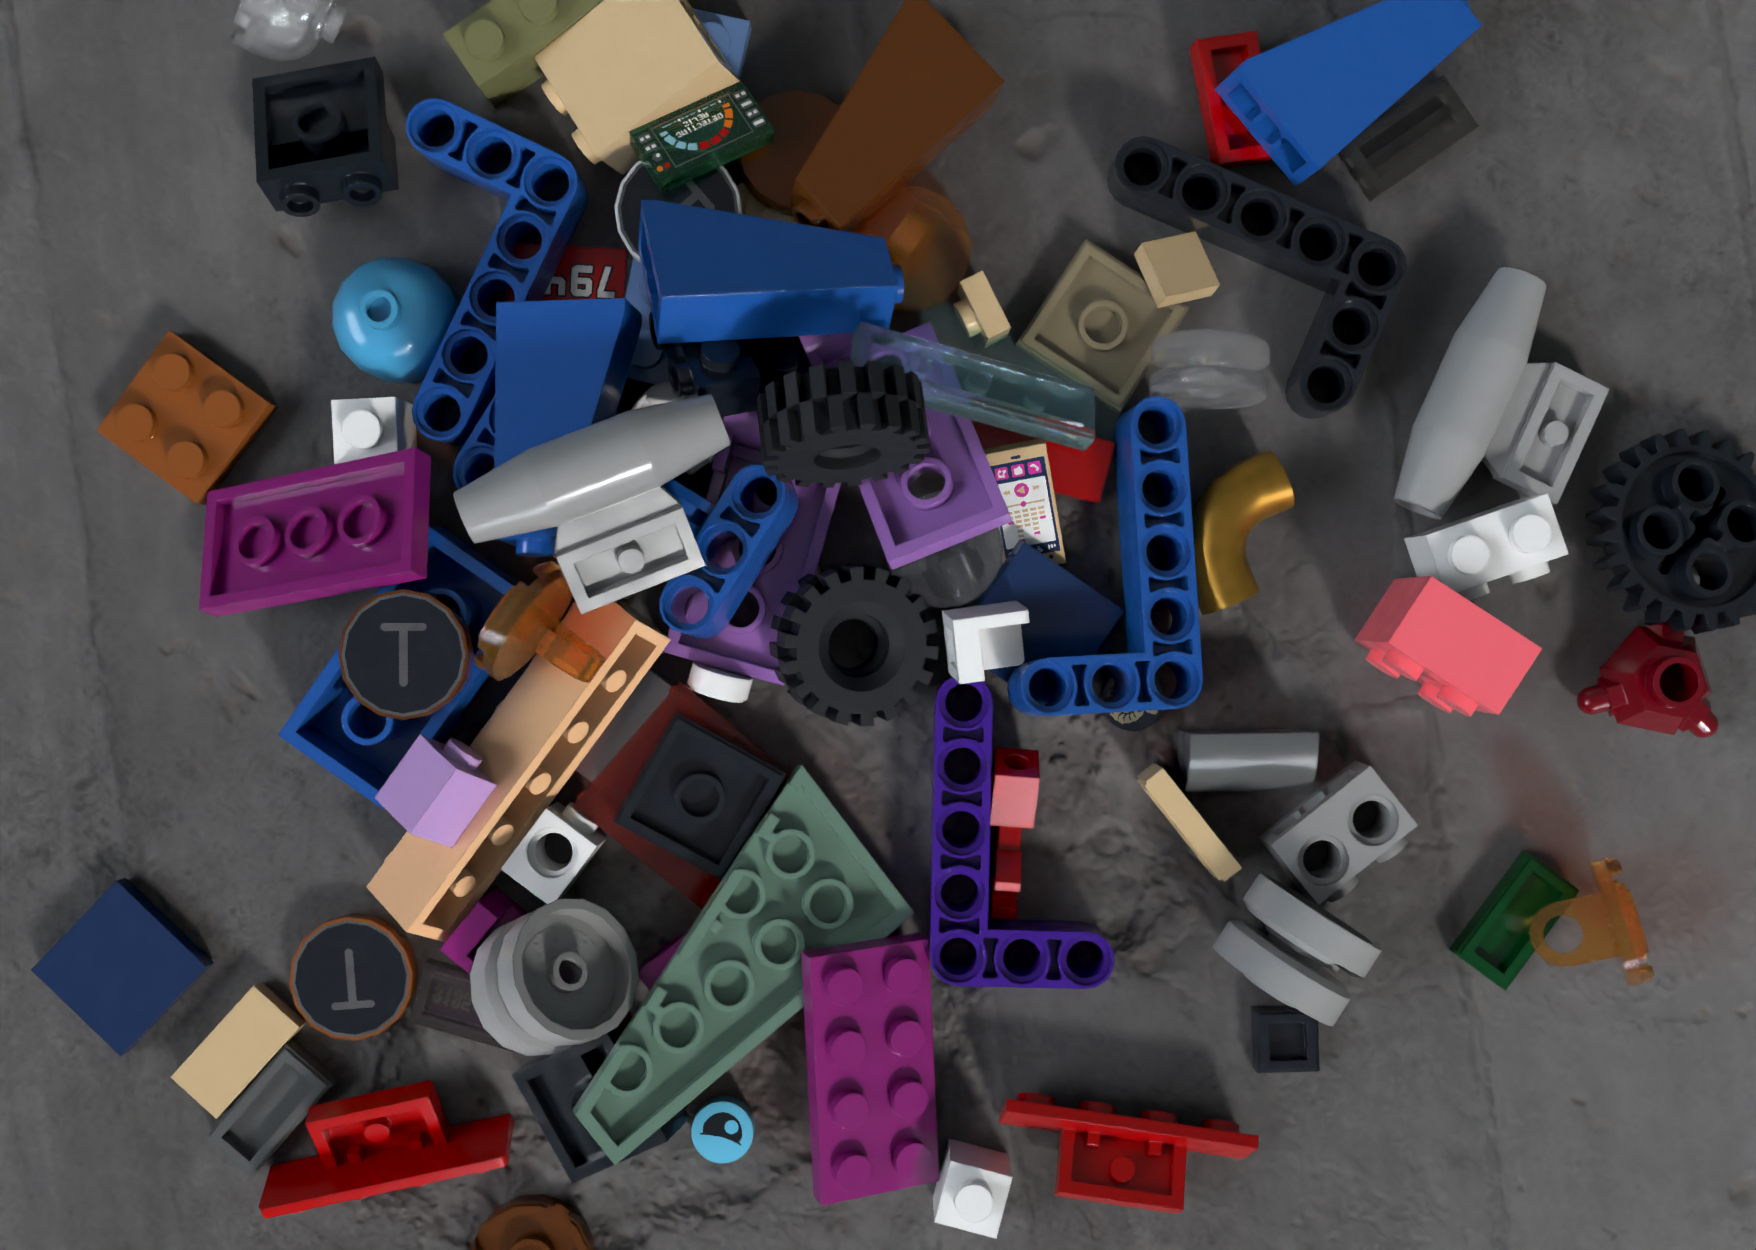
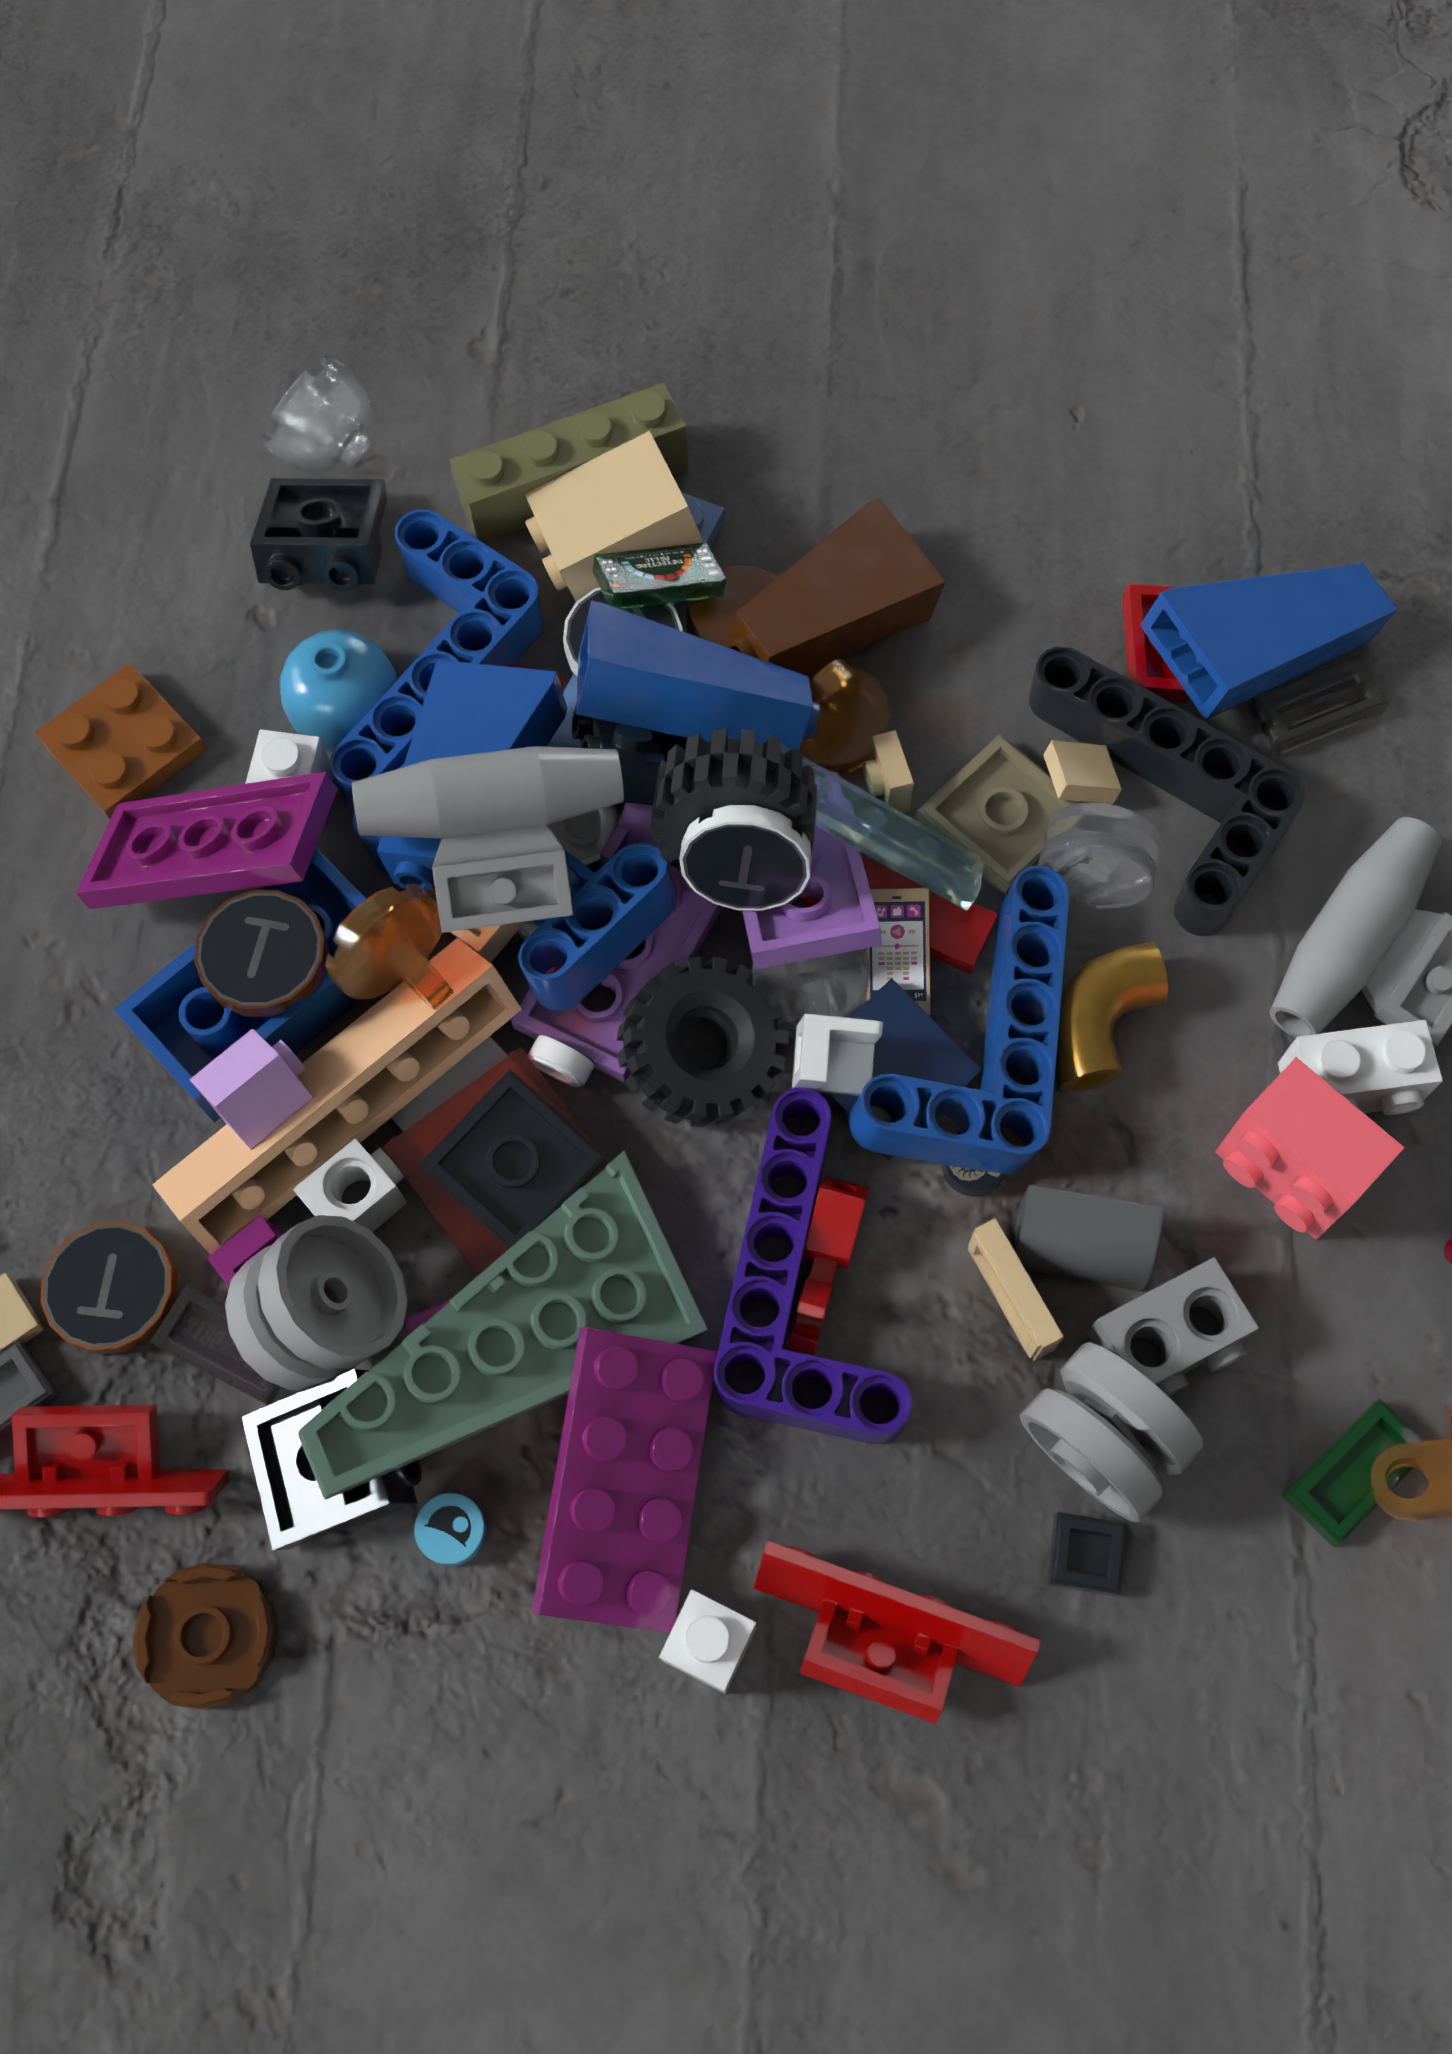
camera: 15 degrees right, 20 degrees down
(865, 476) = (745, 858): none -> black tile

